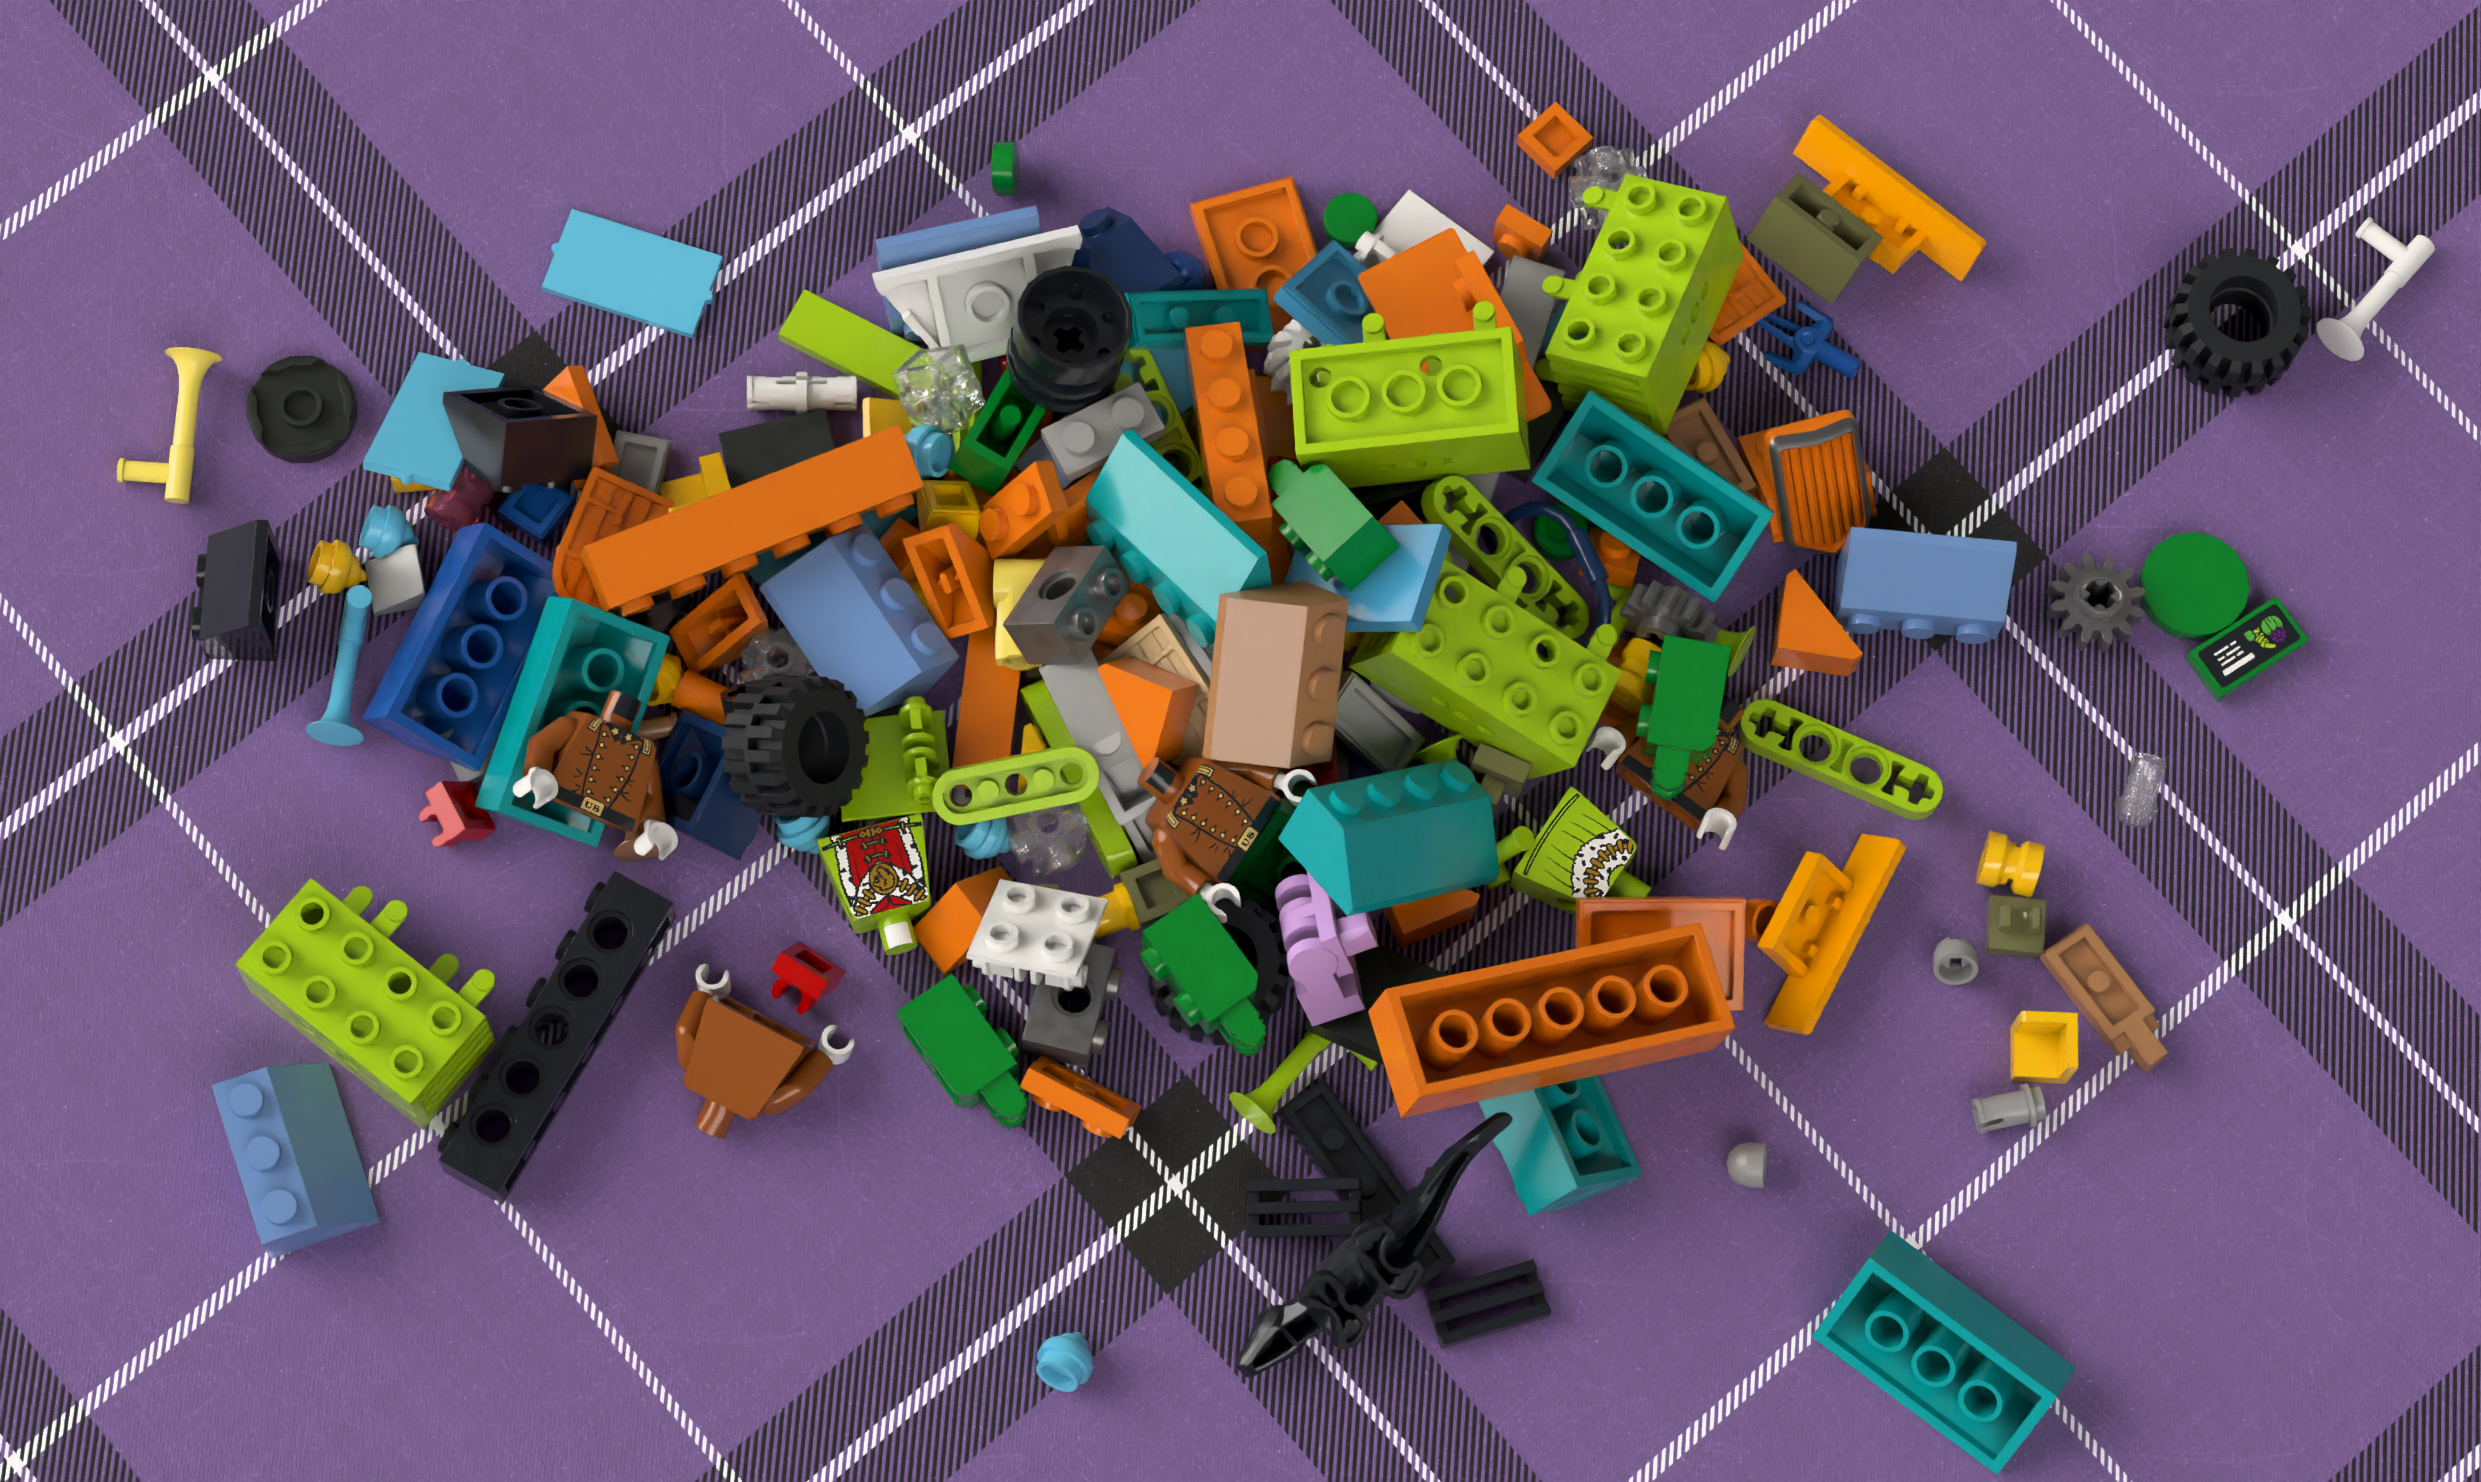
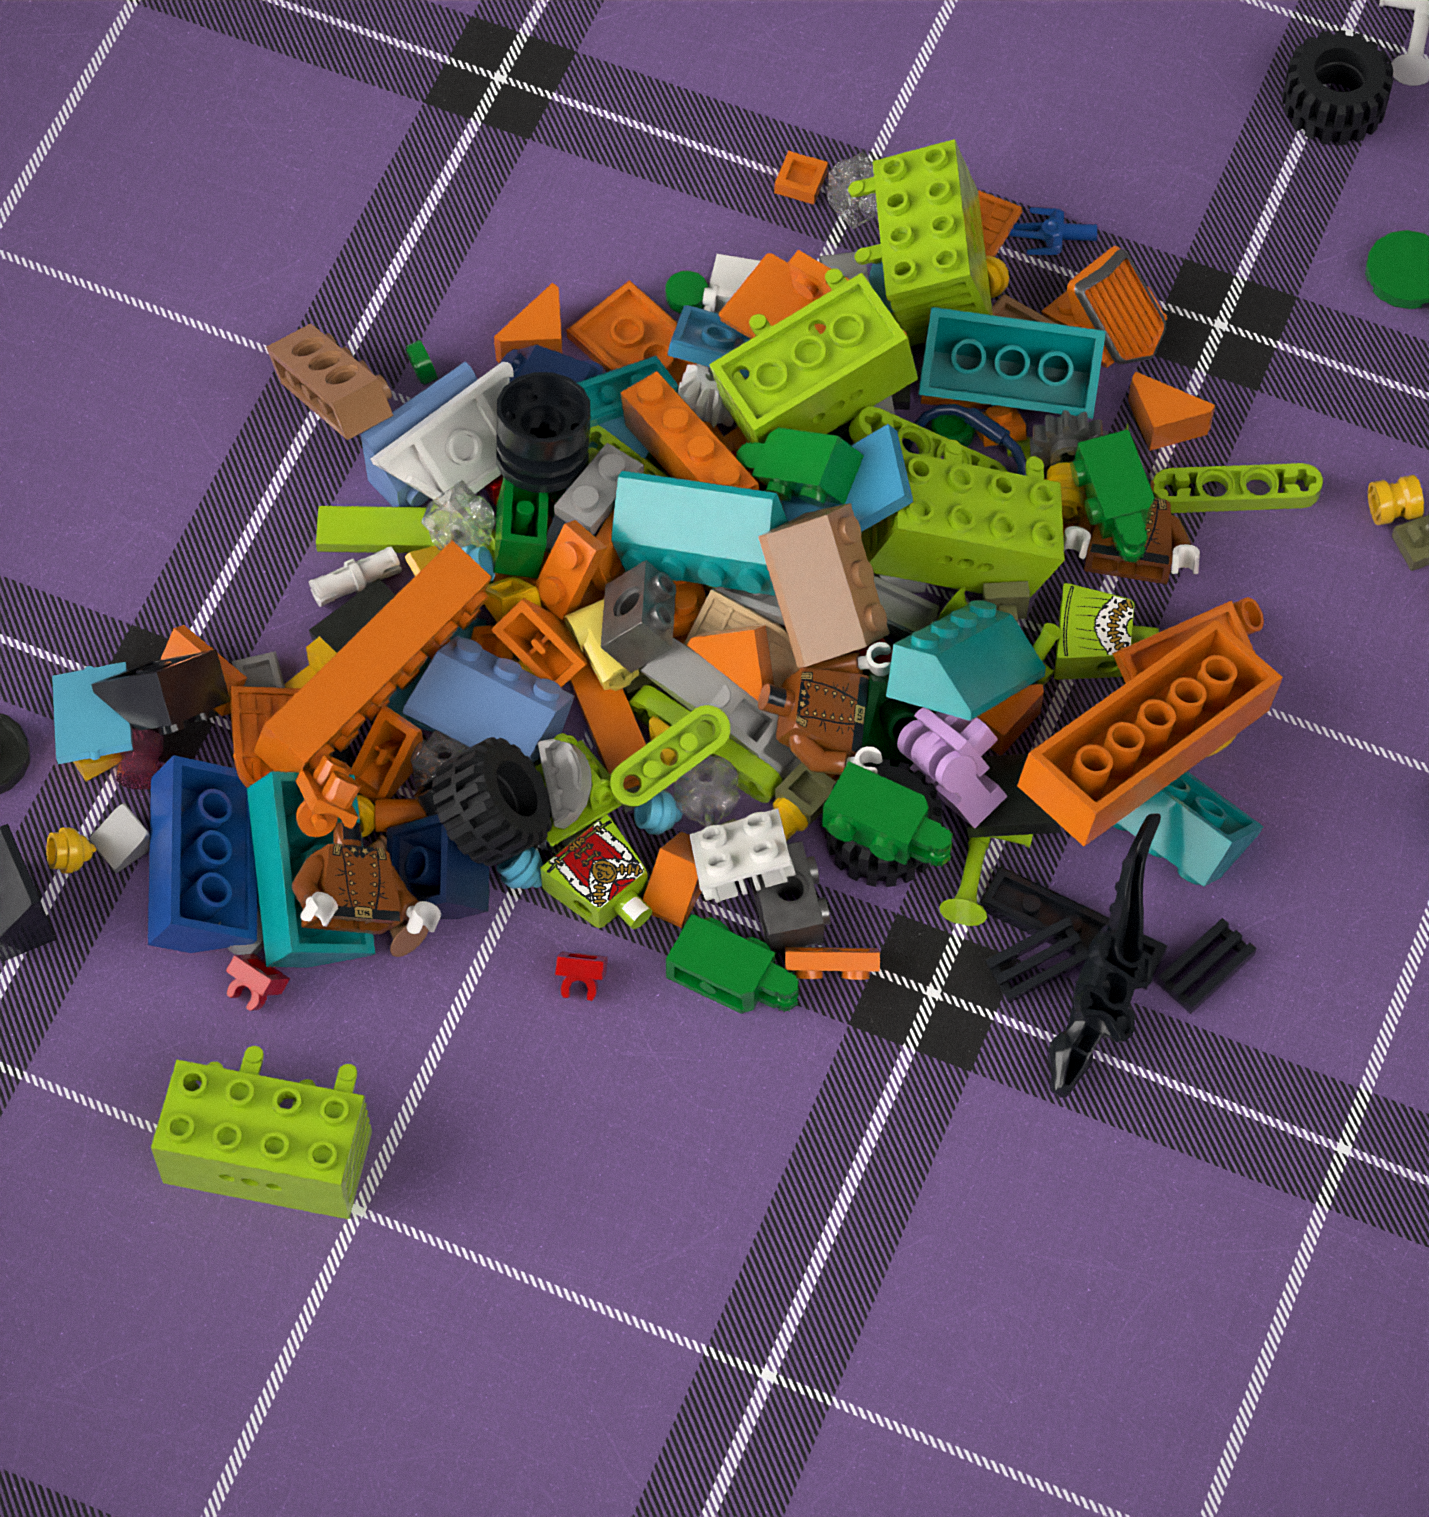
camera: 20 degrees left, 10 degrees down
(295, 1155) = (261, 1281): medium blue slope -> none
(336, 723) = (129, 959): medium azure piece -> none
(386, 531) = (93, 807): medium azure plate -> none
(498, 1165) = (418, 1215): black brick -> none
(537, 510) = (201, 741): blue tile -> none
(615, 657) = (327, 797): none -> orange hips
(632, 273) = (183, 554): medium azure piece -> none
(745, 1058) = (569, 1047): dark orange torso -> none
(884, 153) = (331, 381): none -> medium nougat brick
(892, 755) = (566, 780): none -> light grey tile
(1064, 1361) = (925, 1150): medium azure plate -> none
(1153, 190) = (535, 324): none -> orange slope
(1521, 235) = (815, 241): orange plate -> none
(1748, 1164) = (1335, 782): light grey hinge -> none
(1814, 238) = (1020, 158): olive brick -> none
(1821, 925) = (1292, 600): light orange bracket -> none
(1888, 203) = (1053, 120): light orange bracket -> none
(1923, 584) = (1229, 340): medium blue slope -> none
(1955, 972) = (1404, 577): light grey hinge -> none
(2098, 621) = (1350, 306): flat silver gear -> none

